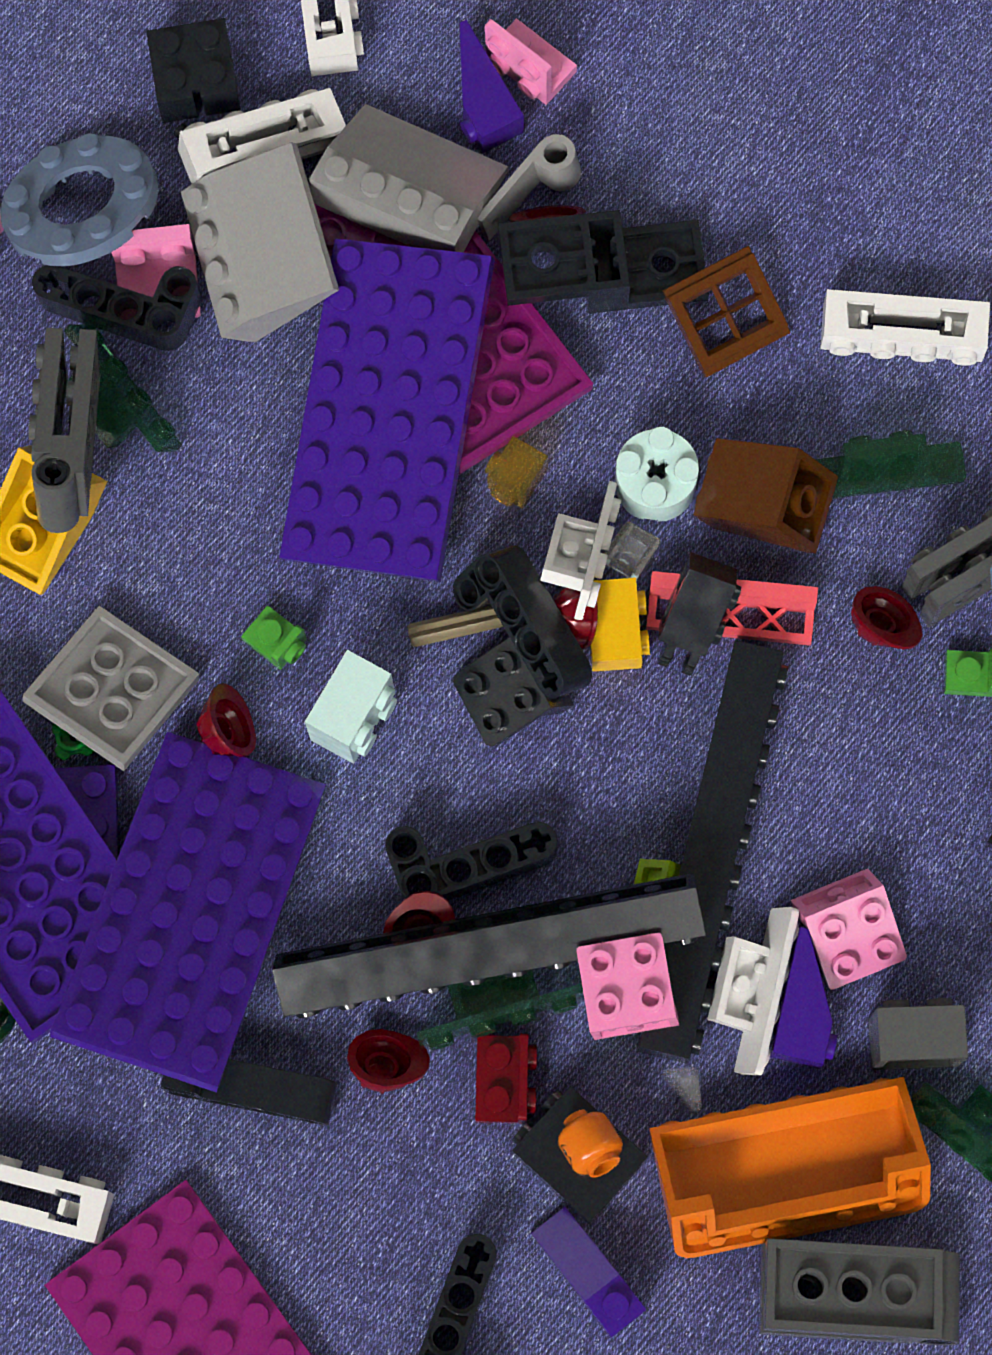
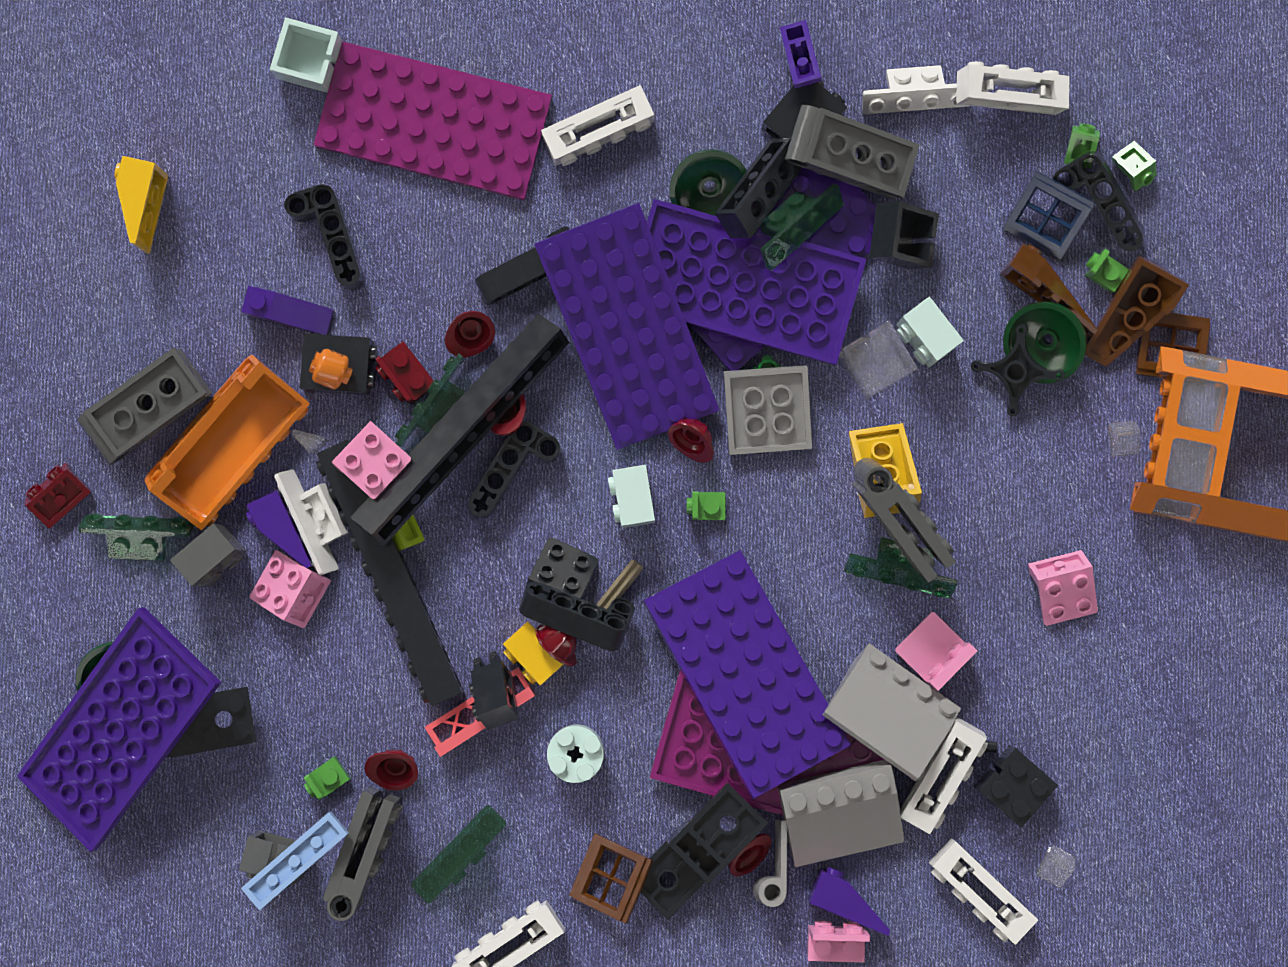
camera: 140 degrees right, 10 degrees up
(97, 236) = (978, 654): sand blue plate -> none
(116, 299) = (944, 617): black beam -> none
(515, 472) = (652, 695): clear yellow brick -> none
(576, 555) = (581, 673): white bracket -> none
(632, 550) = (556, 700): clear slope -> none
(766, 493) = (508, 787): reddish brown slope -> none

